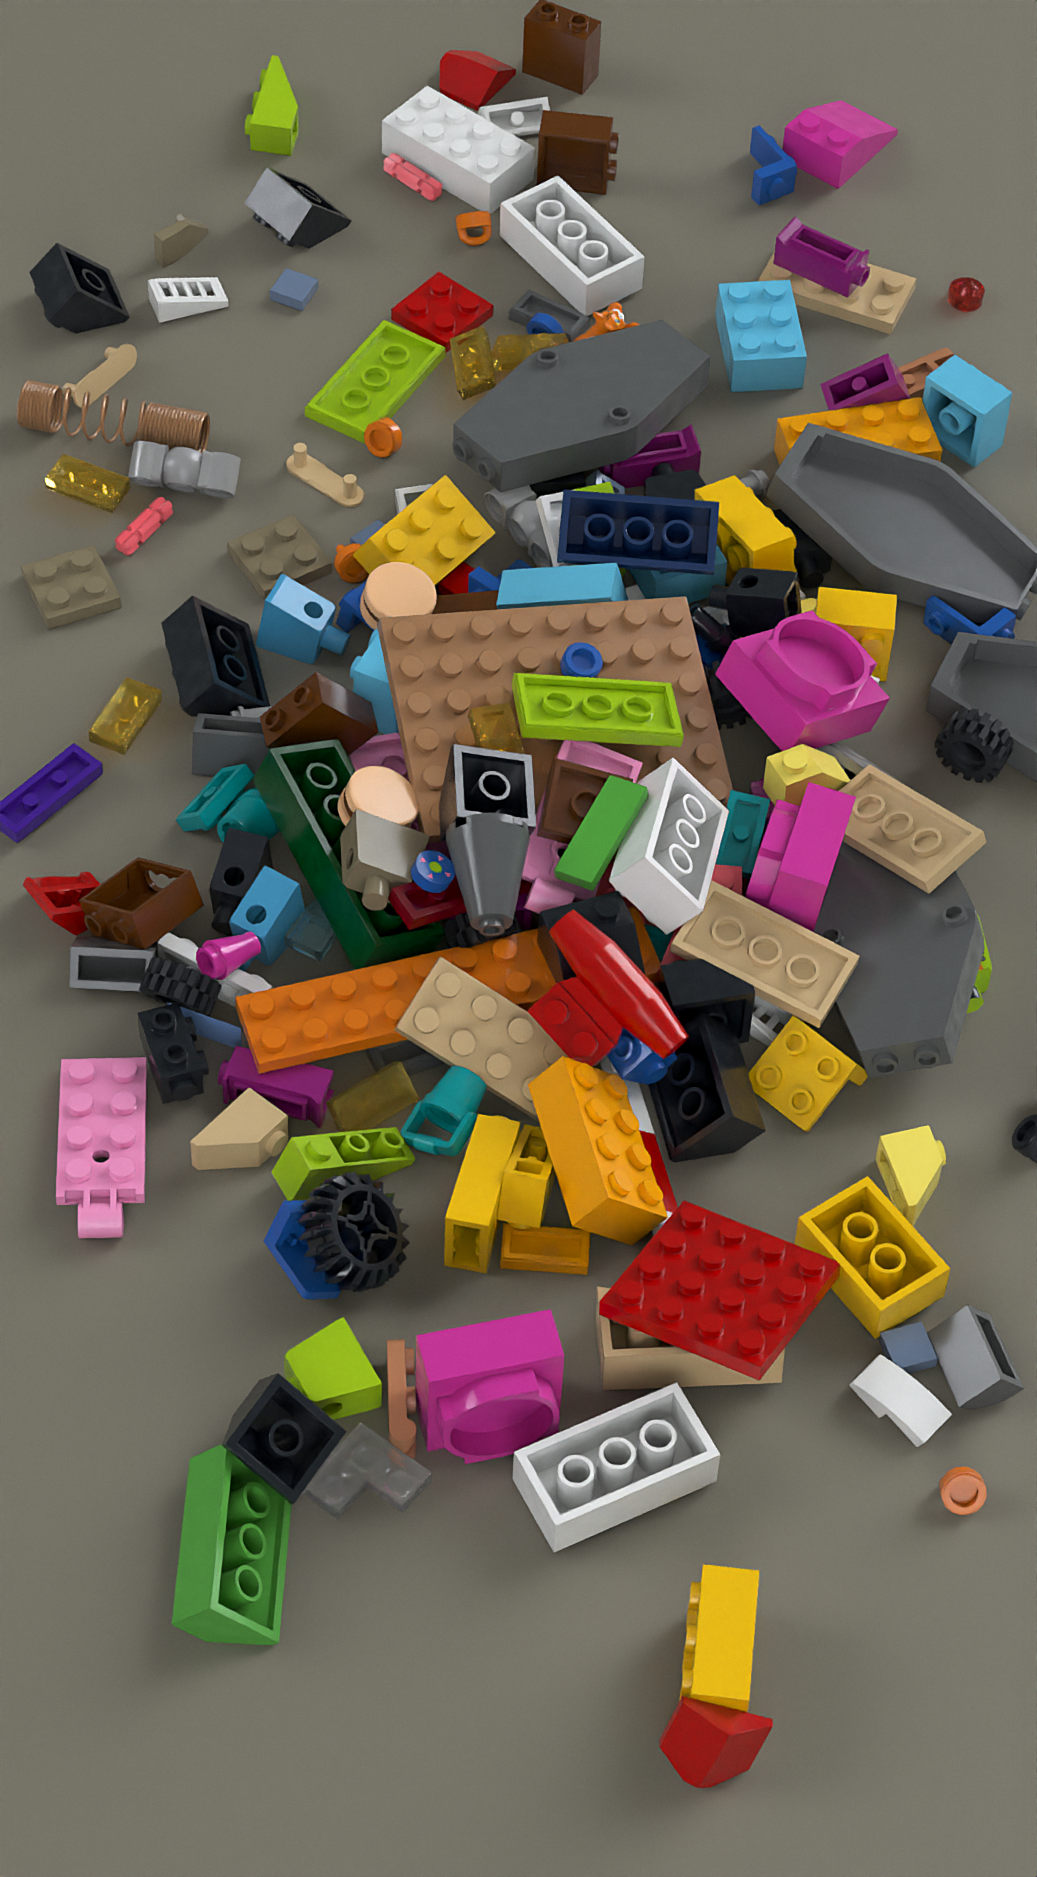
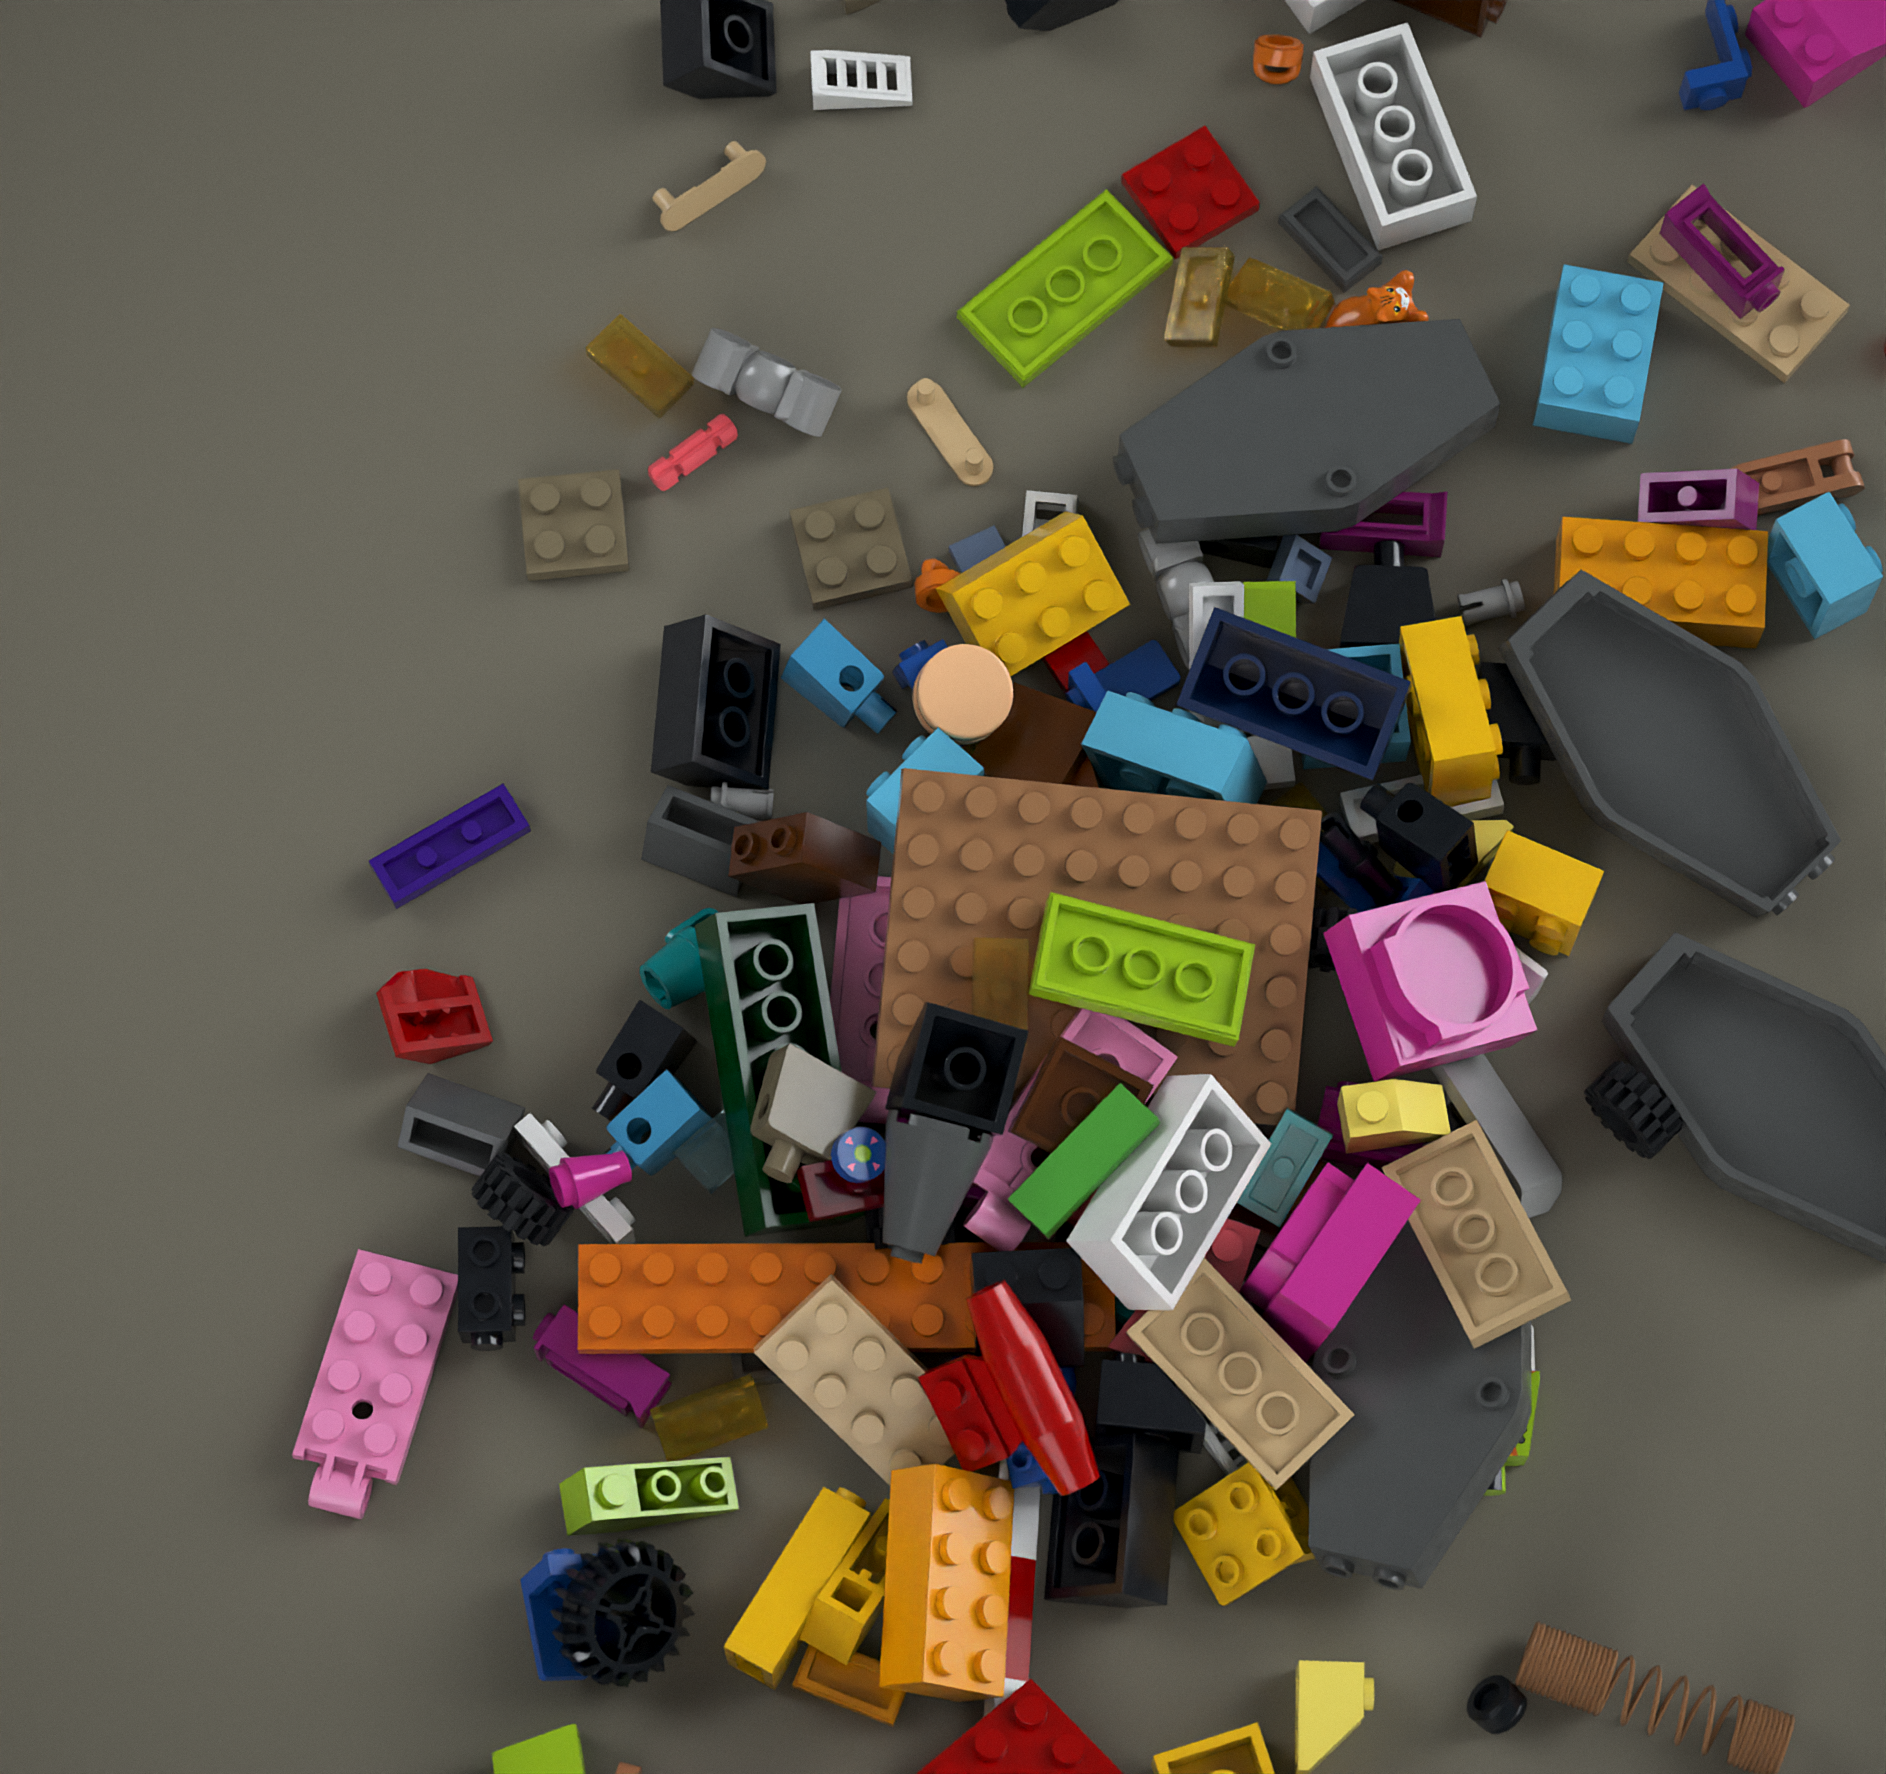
camera: 20 degrees right, 20 degrees up
(41, 409) = (758, 303): medium nougat piece -> none
(125, 715) = (581, 753): clear yellow plate -> none
(135, 909) = (510, 1062): reddish brown piece -> none
(214, 1029) = (552, 1260): medium blue sticker -> none
(221, 791) = (654, 914): teal plate -> none
(241, 1135) = (540, 1422): tan slope -> none
(294, 289) = (1005, 102): sand blue tile -> none
(380, 794) = (831, 1019): light nougat head -> none
(383, 437) = (1043, 392): orange tile -> none
(449, 1107) = (804, 1457): teal piece -> none
(543, 323) = (1312, 266): blue tile -> none
(581, 661) = (1146, 890): blue tile -> none
(947, 622) = (1730, 936): blue bracket -> none

